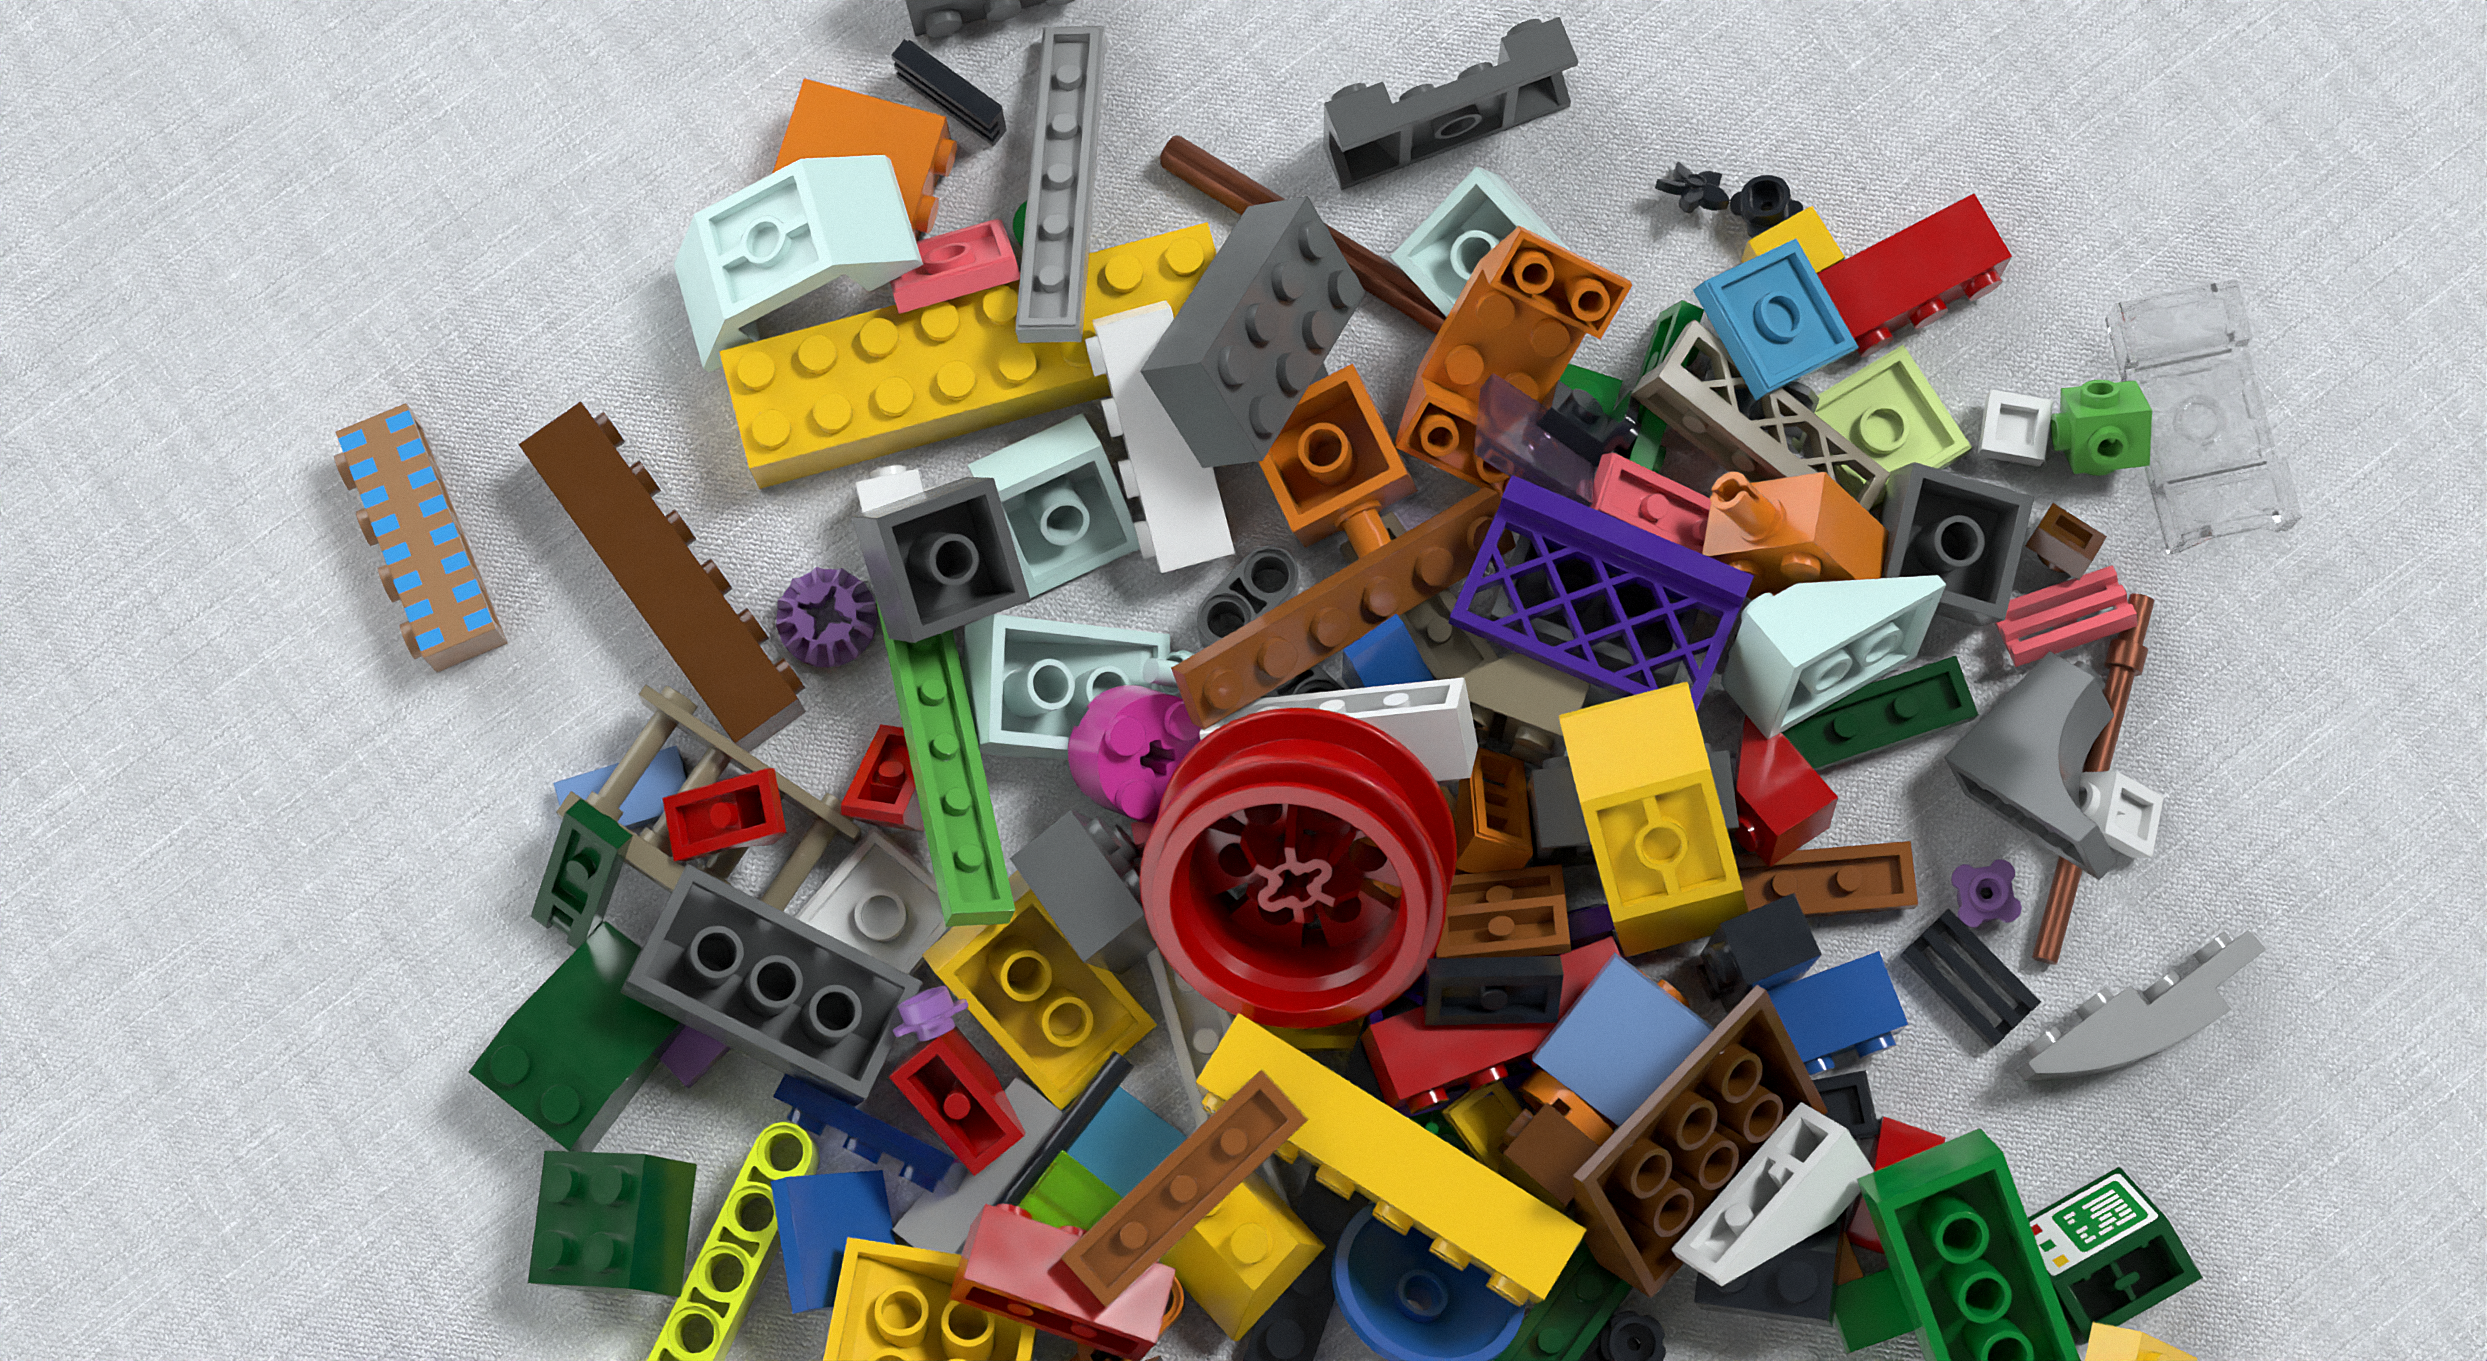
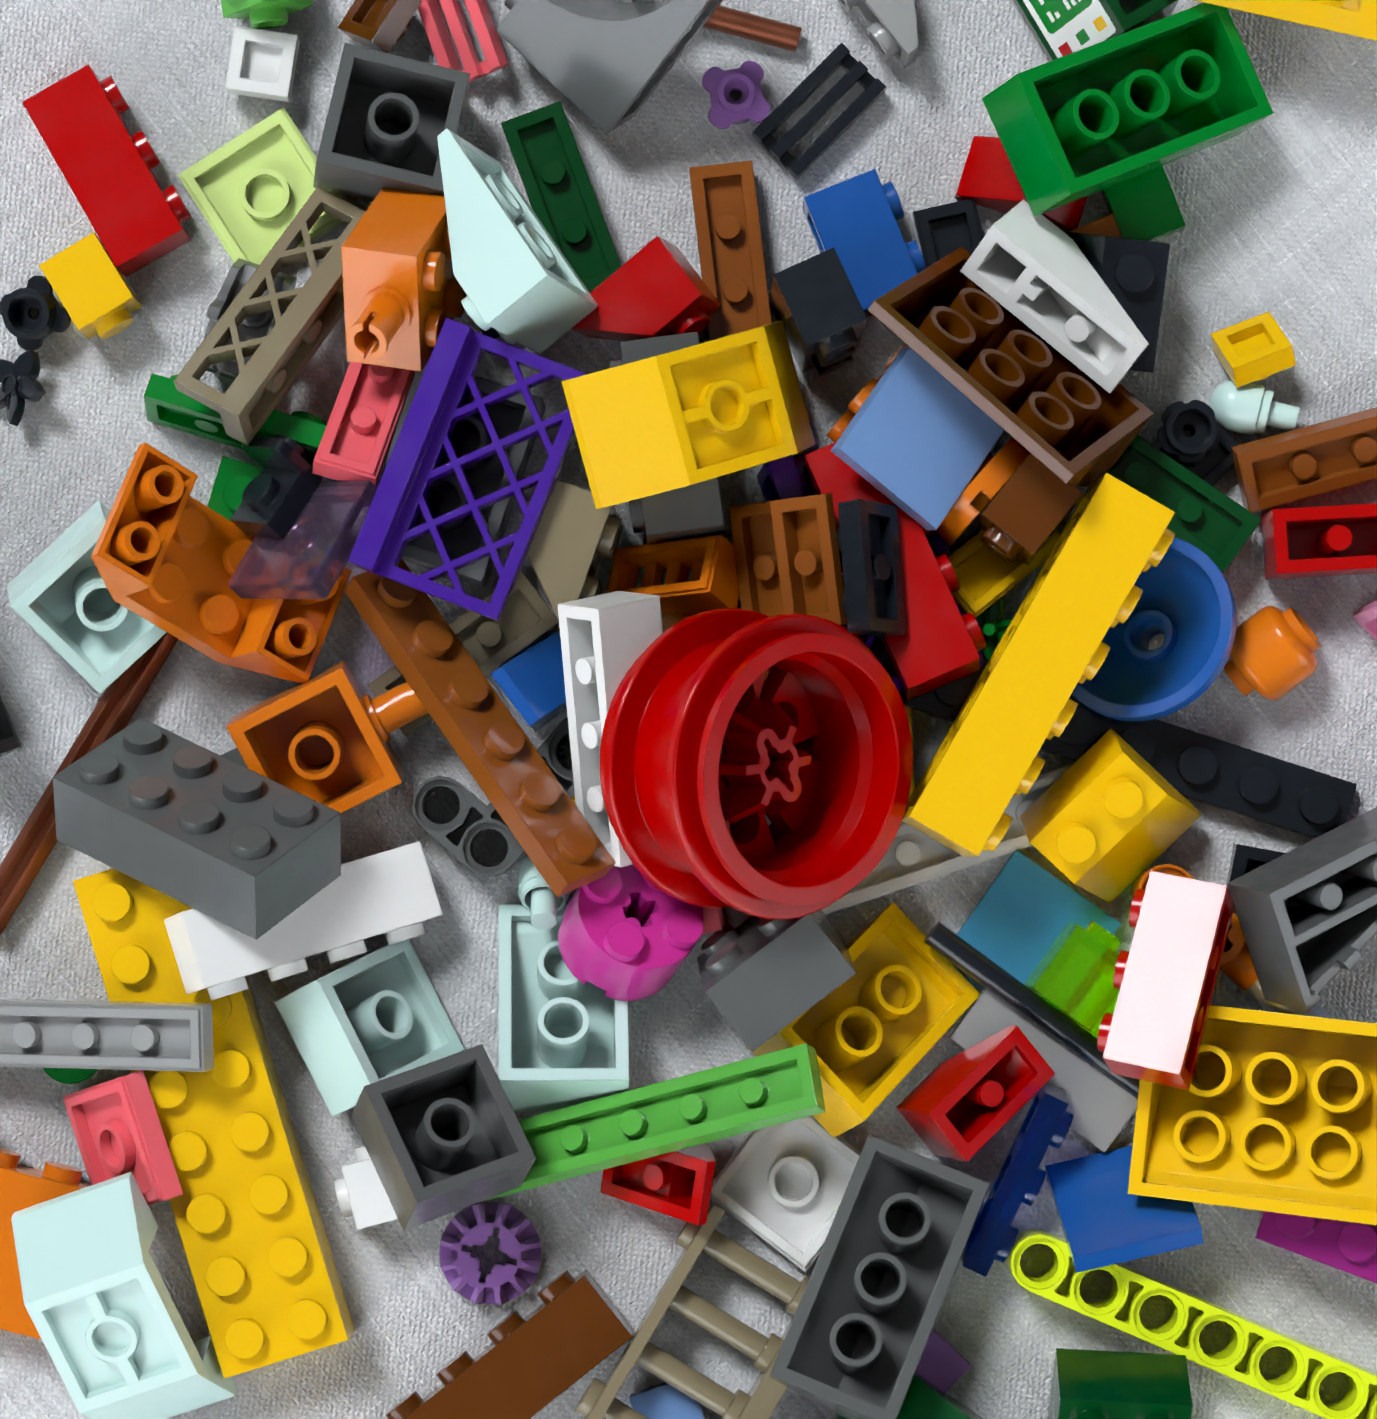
camera: 90 degrees left, 10 degrees up
(725, 816) = (714, 1340): red slope -> none
(929, 1013) = (904, 1125): medium lavender plate -> none
(1184, 1188) = (1084, 862): dark orange plate -> none
(1775, 319) = (167, 300): dark azure tile -> none

